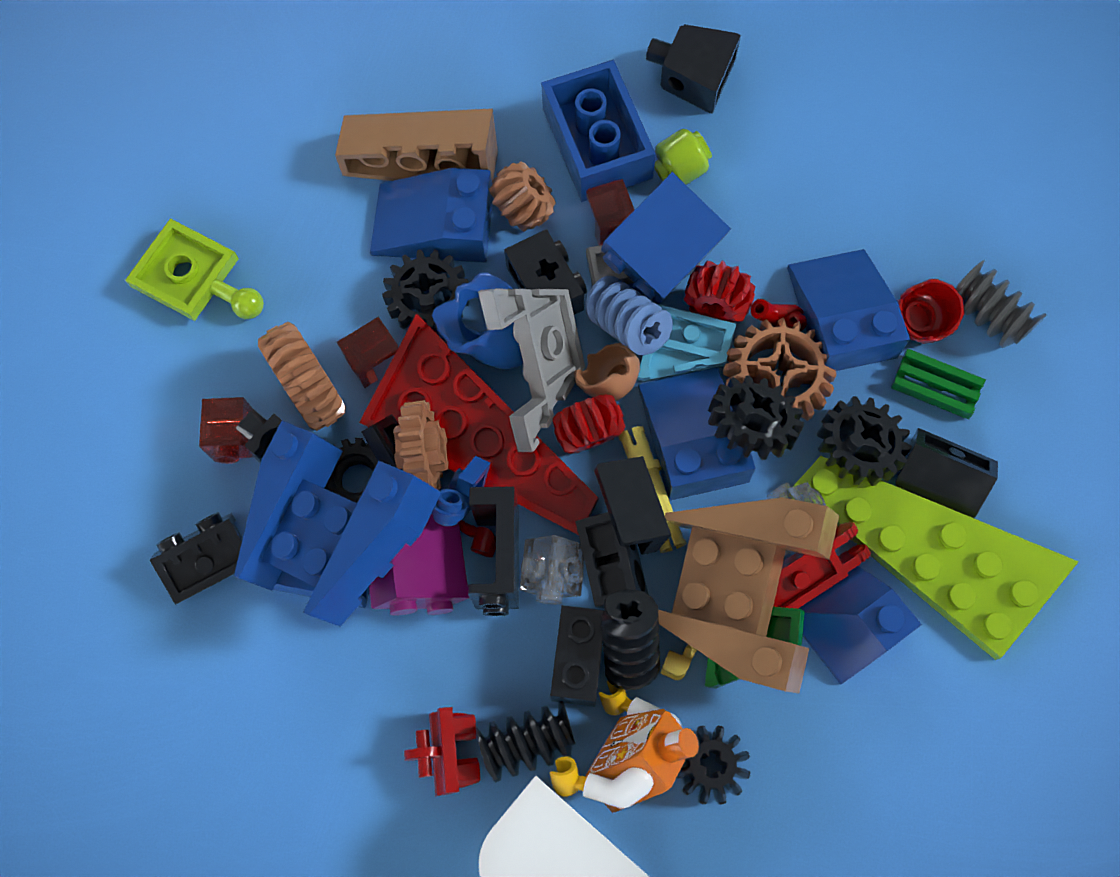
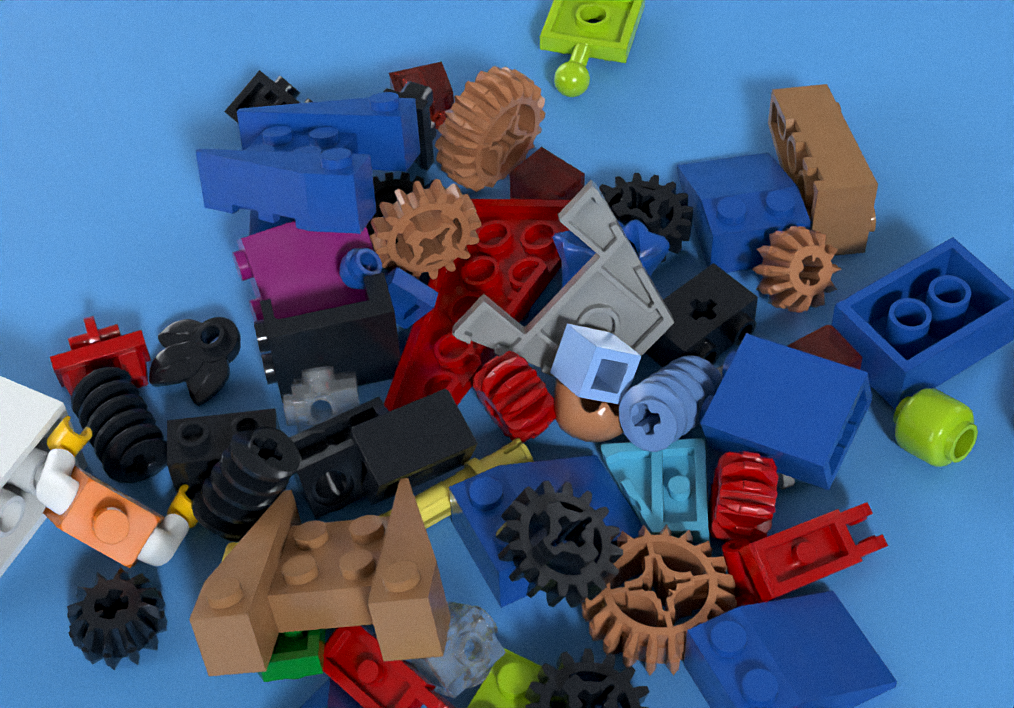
camera: 75 degrees right, 20 degrees down
(460, 677) = (193, 357): none -> black plate
(593, 354) = (595, 364): none -> light blue brick
(771, 262) = (808, 552): none -> red hinge

